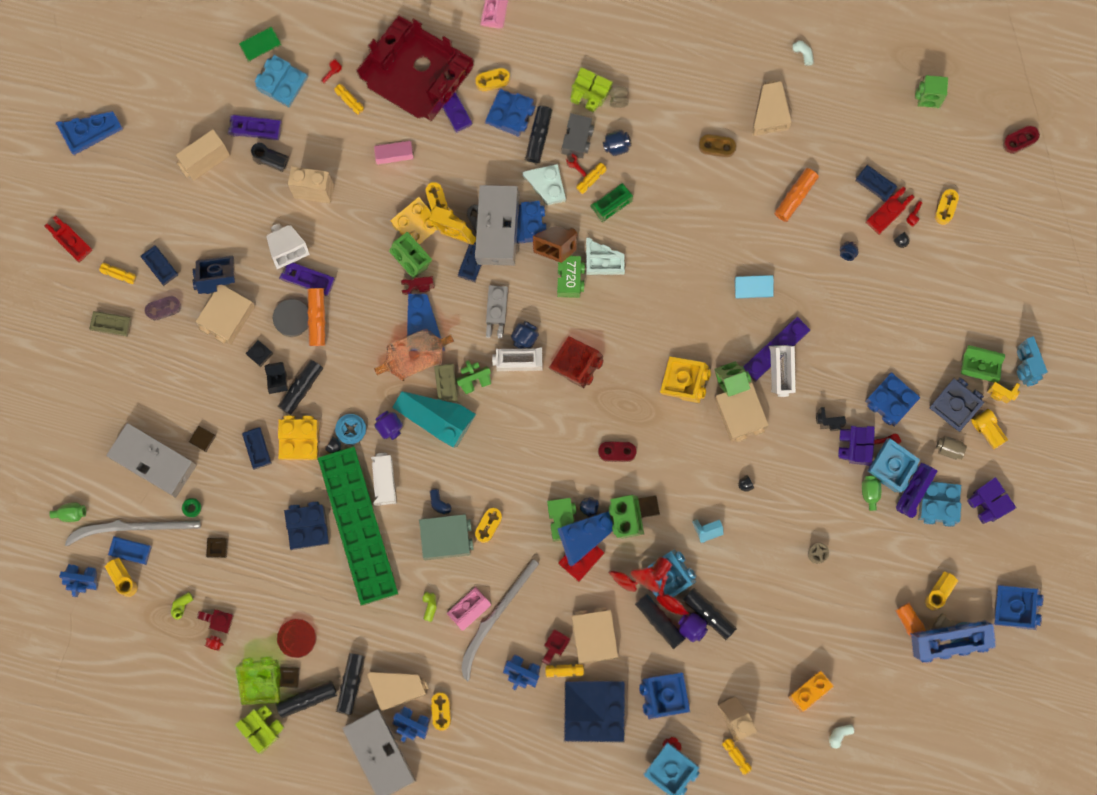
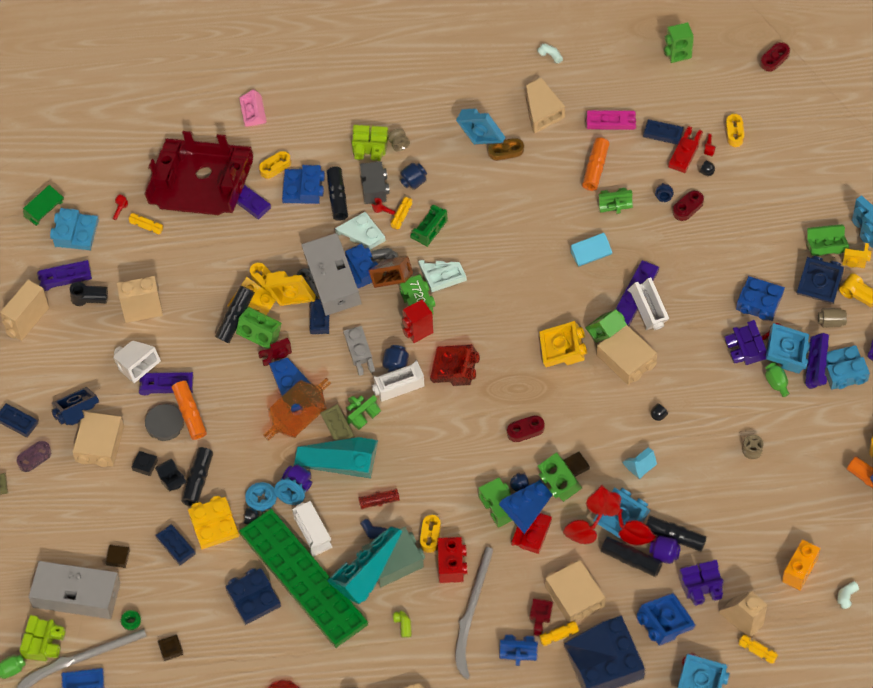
camera: 20 degrees left, 20 degrees down
(103, 505) = (39, 639): none -> lime hips
(376, 436) = (286, 495): none -> dark azure gear
(392, 233) = (234, 311): none -> black axle
(393, 152) = (206, 253): bright pink slope -> none
(406, 549) = (360, 576): none -> teal wedge
(455, 472) = (379, 498): none -> clear red pin
(469, 609) = (442, 613): bright pink slope -> none
(496, 561) = (451, 560): none -> red brick
(558, 305) = (417, 321): none -> red brick
(560, 217) = (385, 253): none -> dark grey arm
(698, 116) = (479, 127): none -> dark azure plate
(722, 672) = (701, 581): none -> dark purple hips
(797, 243) = (615, 200): none -> bright green hips
(831, 151) = (611, 120): none -> dark pink hinge
(832, 423) = (712, 335): black bracket -> none
(867, 272) = (689, 204): none -> dark red plate

